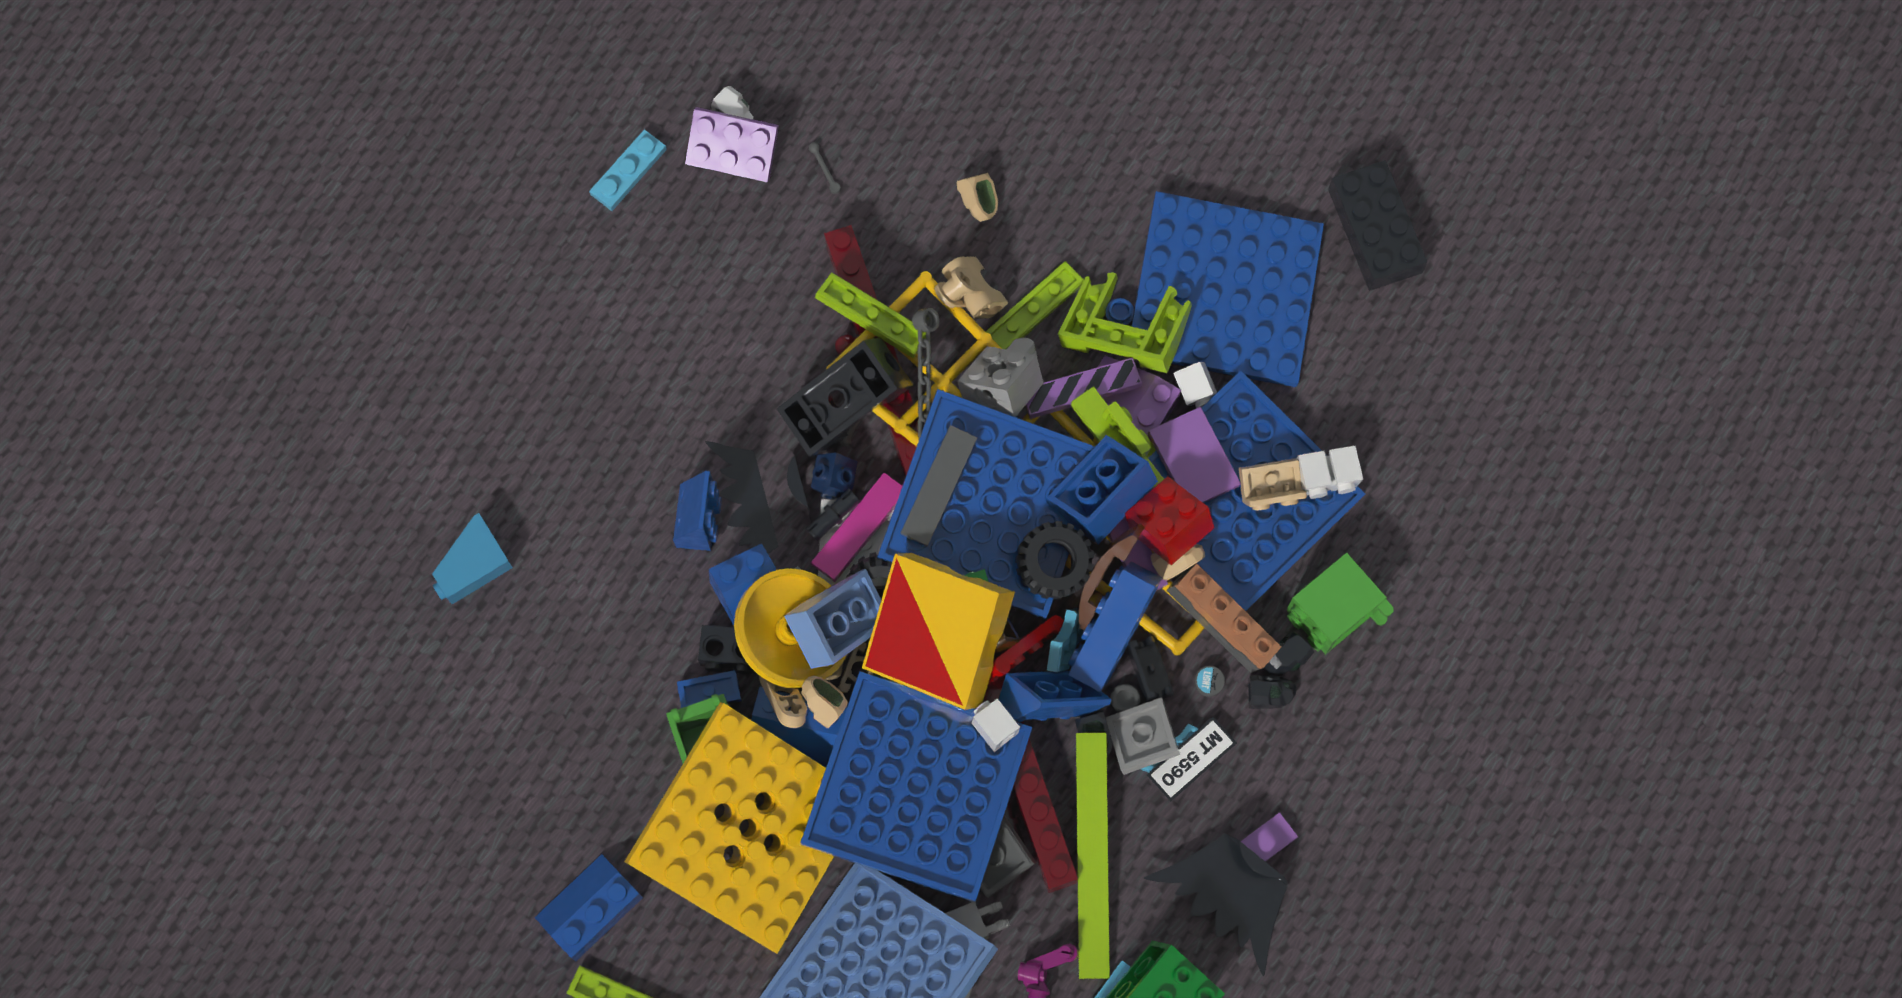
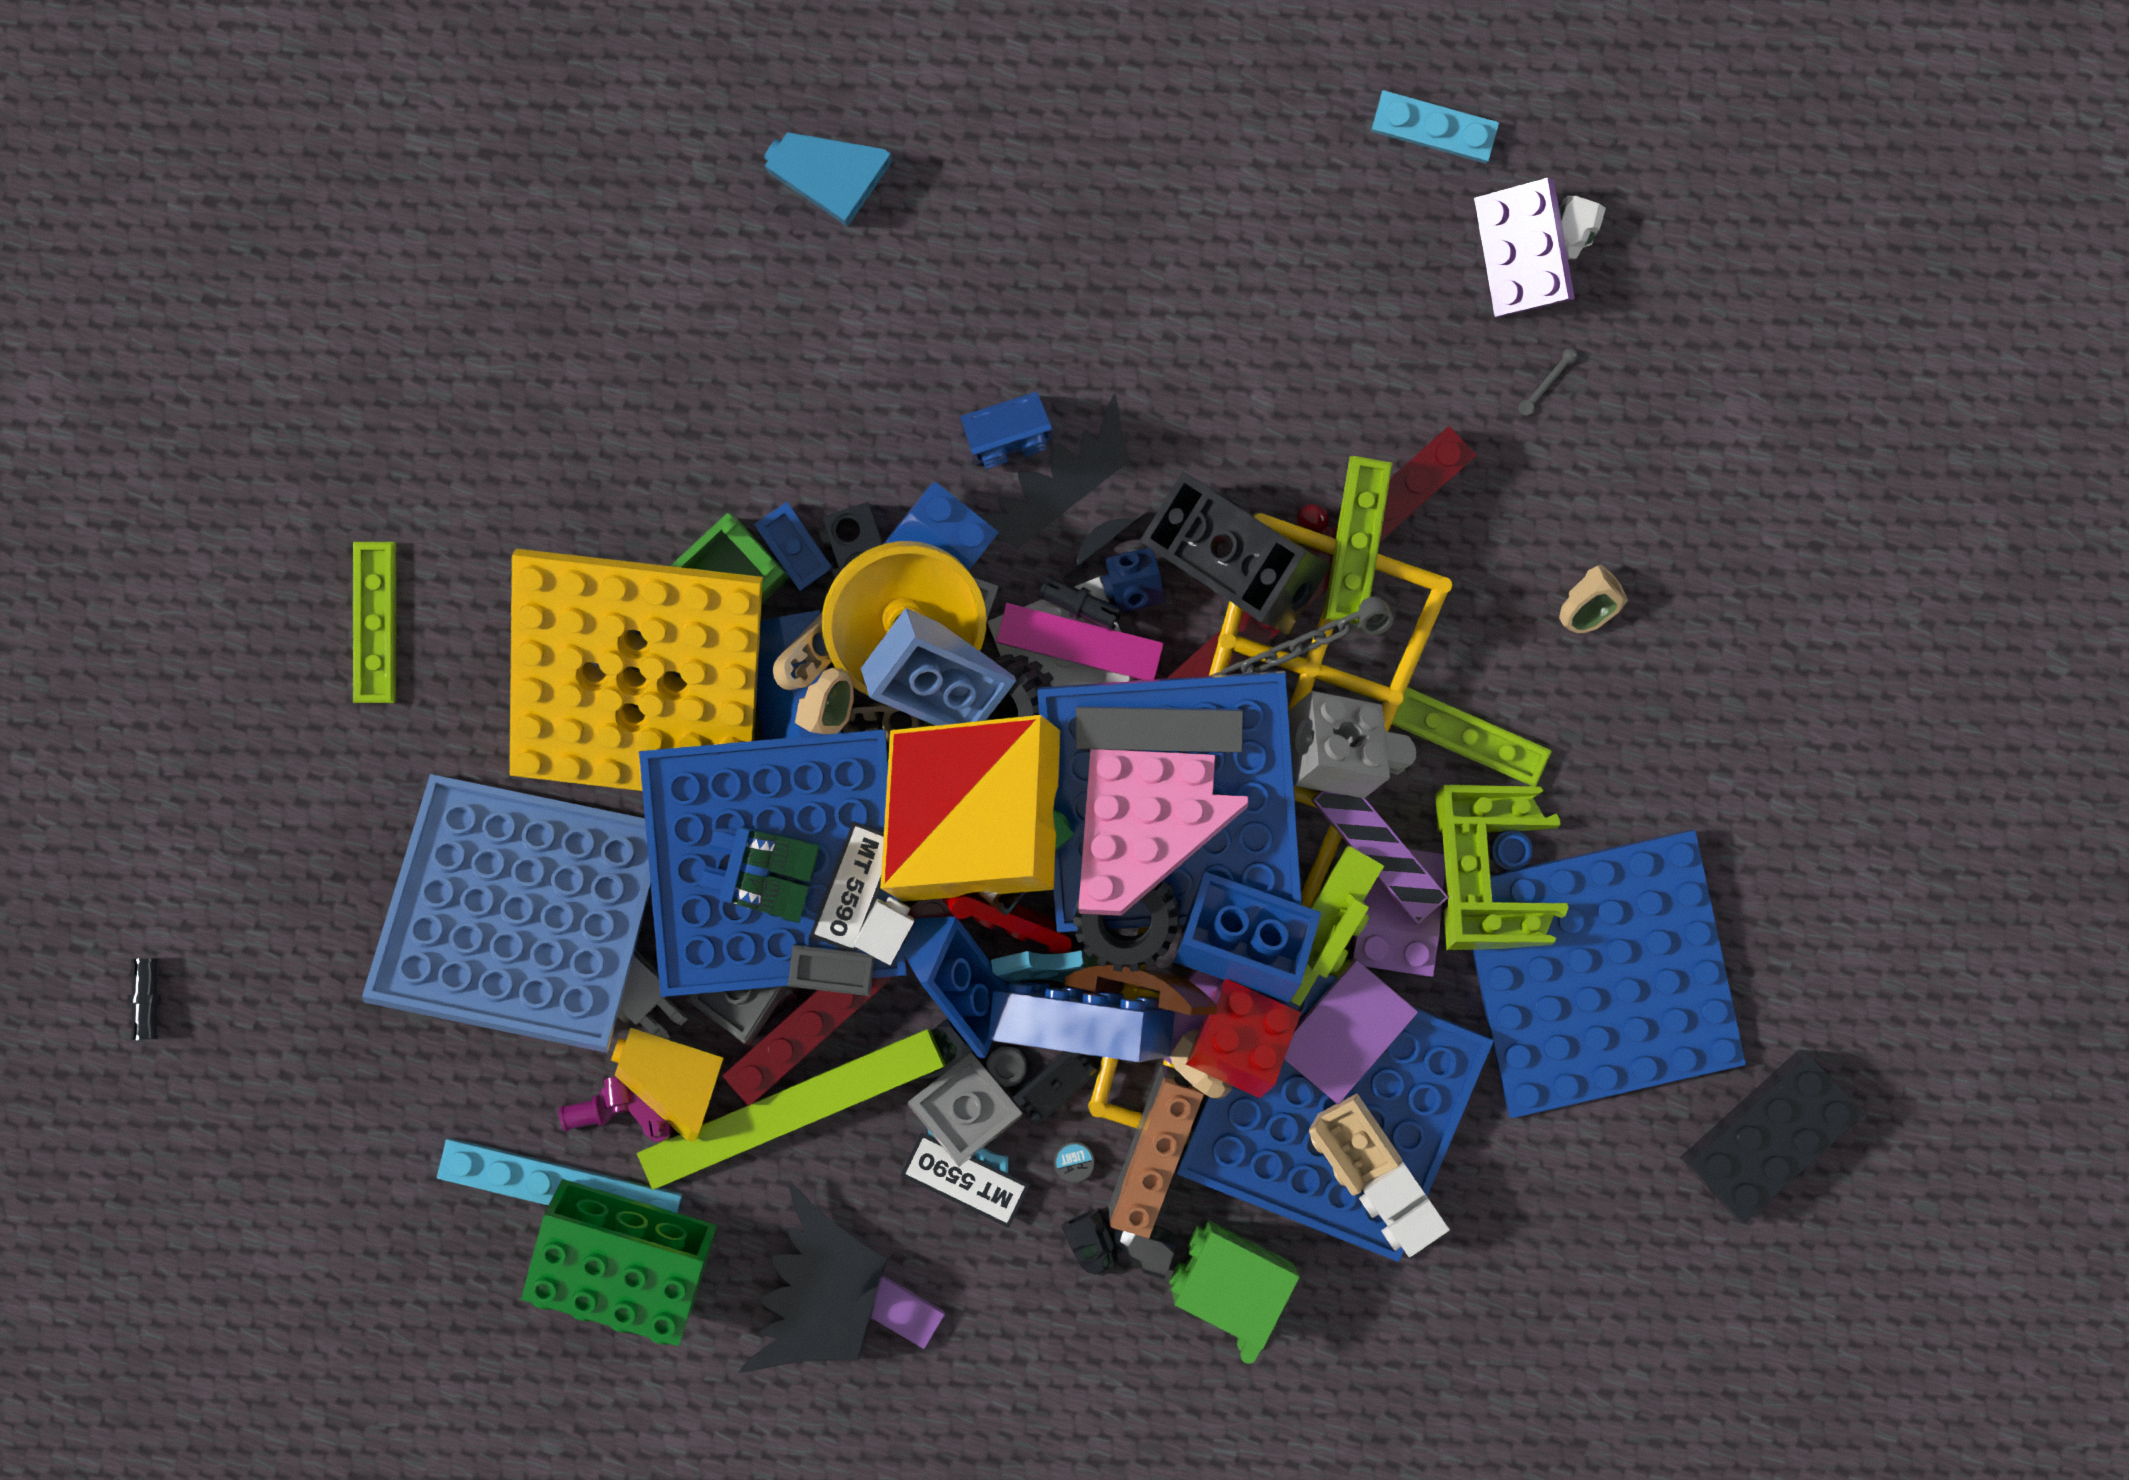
camera: 70 degrees right, 15 degrees up
(588, 908) = (464, 519): blue slope -> none
(916, 800) = (748, 874): none -> hips
(957, 737) = (851, 888): none -> white sticker
(968, 289) = (1453, 645): tan piece -> none
(996, 517) = (1145, 821): none -> bright pink wing
(1007, 774) = (831, 969): none -> dark grey tile
(1036, 929) = (668, 1078): none -> yellow slope
(1195, 384) = (1450, 990): white brick -> none

